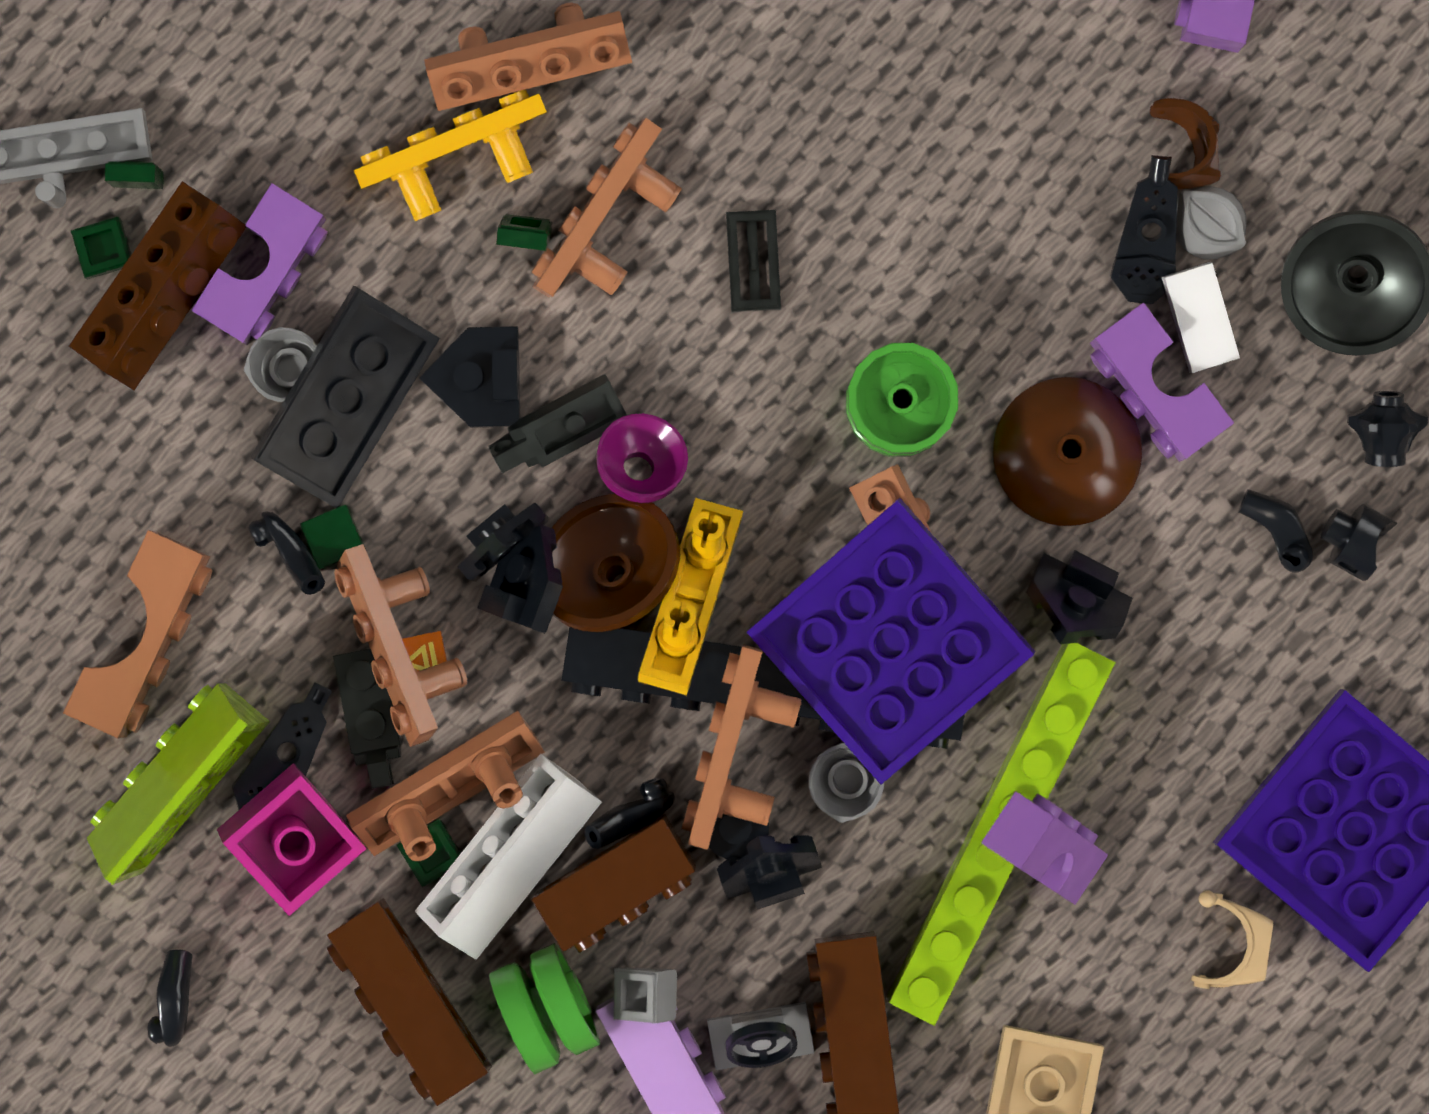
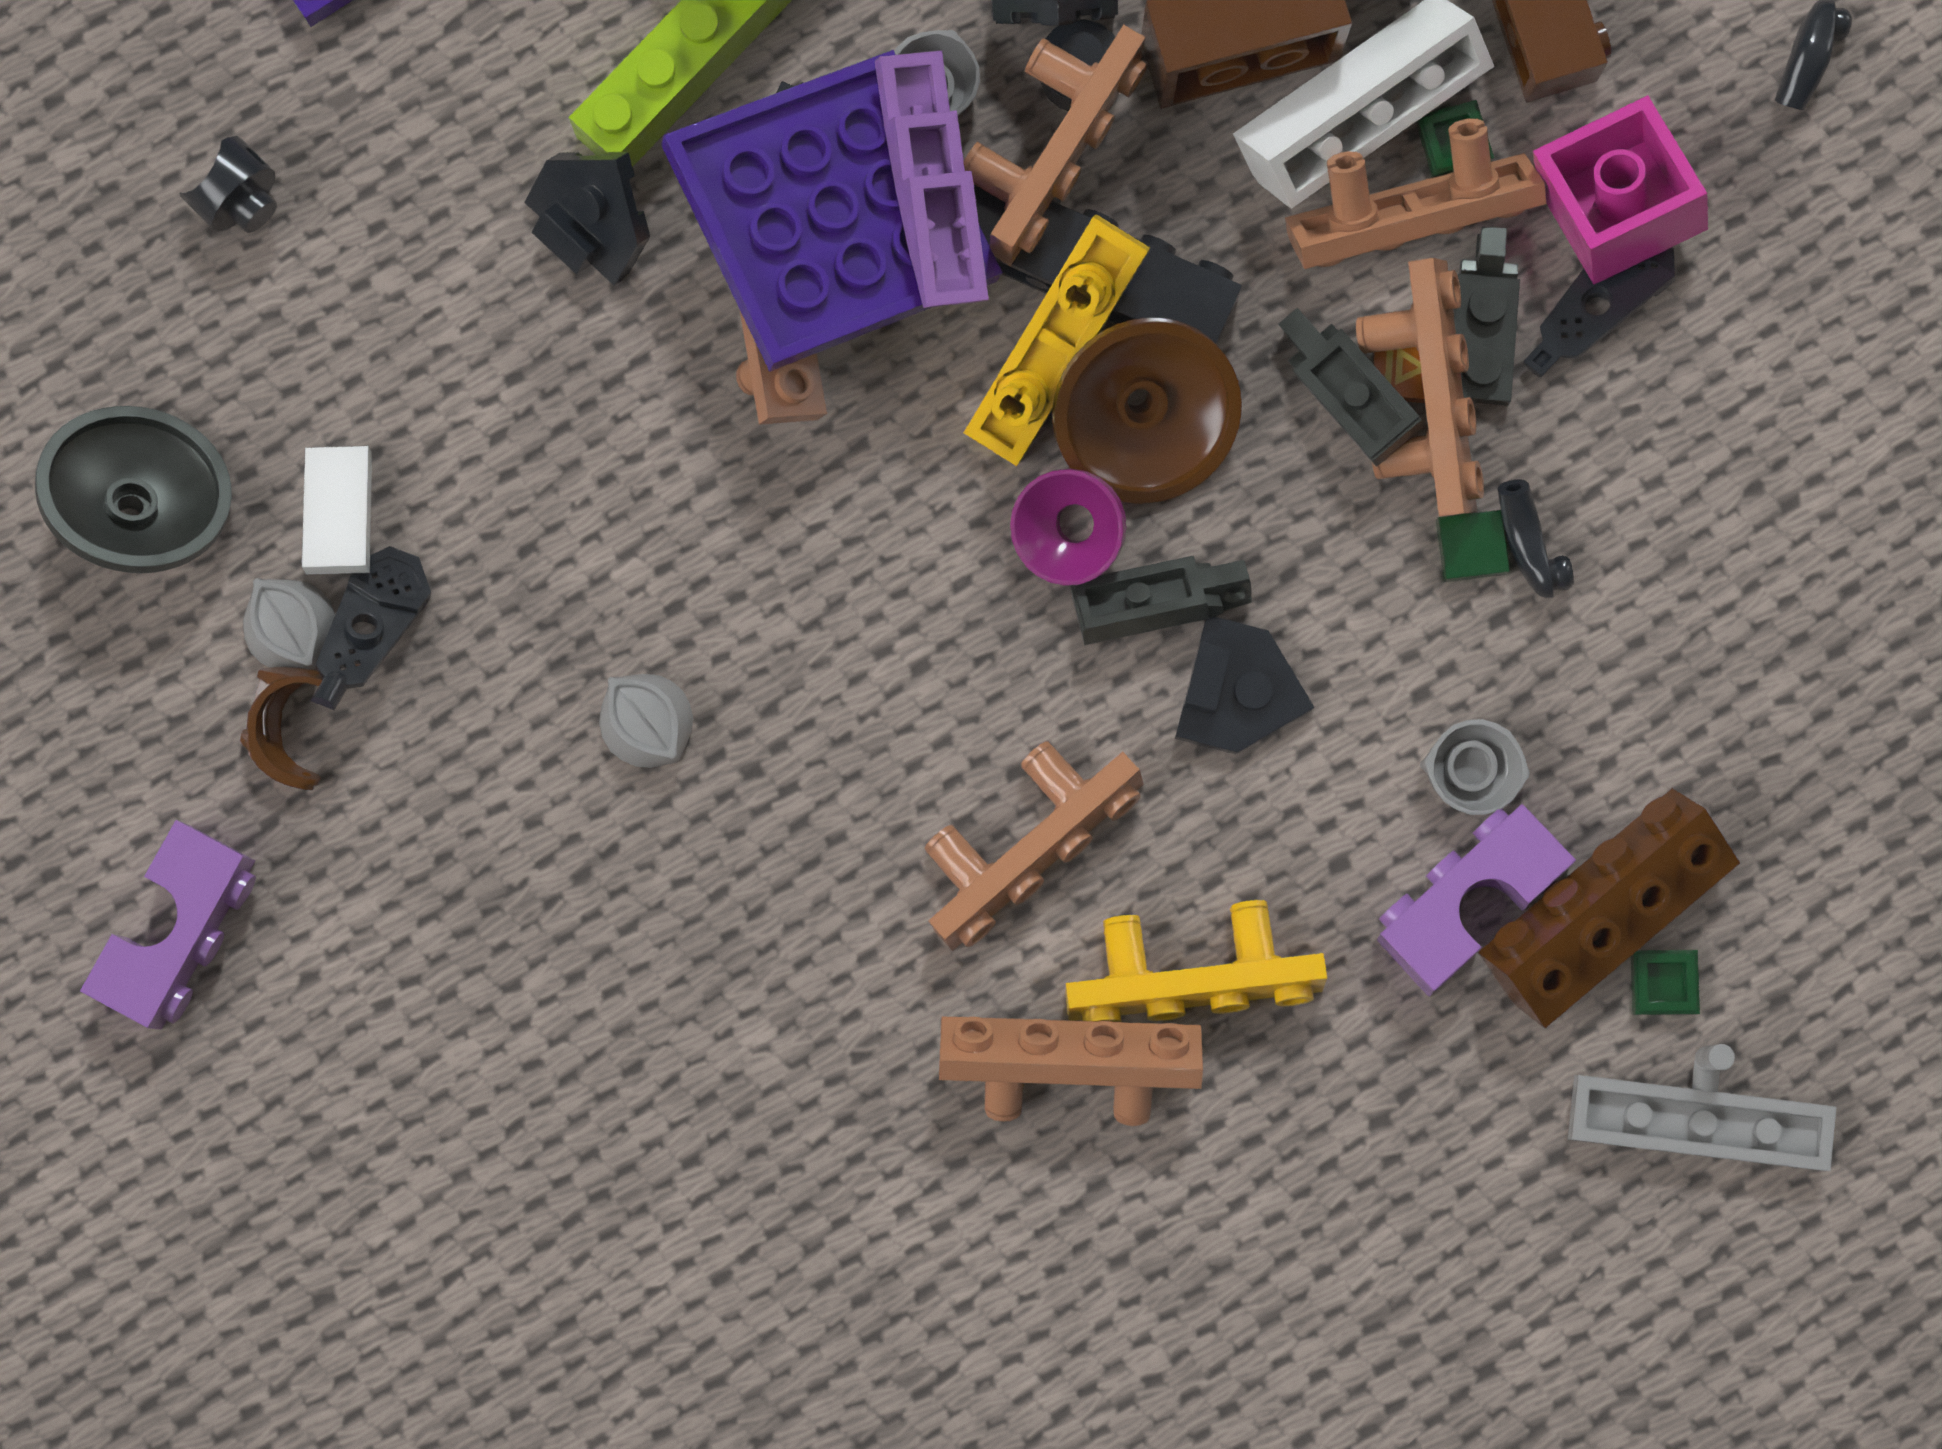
camera: 170 degrees left, 5 degrees down
(134, 175) = (1602, 1057): dark green tile -> none
(167, 579) = (1693, 549): nougat arch -> none
(174, 782) = (1747, 292): lime slope -> none
(345, 397) = (1412, 706): black plate -> none
(458, 627) = (1350, 388): none -> pearl dark grey hinge
(498, 537) = (1268, 482): black plate -> none
(524, 232) = (1135, 847): dark green tile -> none
(526, 582) = (1255, 411): black plate -> none
(630, 816) = (1202, 113): black arm -> none
(756, 302) = (850, 788): pearl dark grey tile -> none
(819, 683) = (931, 179): none -> medium lavender slope
(919, 228) = (645, 720): none -> light grey hat
(928, 386) = (716, 470): bright green wheel -> none
(1031, 456) = (557, 439): reddish brown dish -> none
(1180, 422) = (397, 388): medium lavender arch -> none
(1285, 527) = (316, 235): black arm -> none
(1387, 428) = (155, 310): black rock -> none

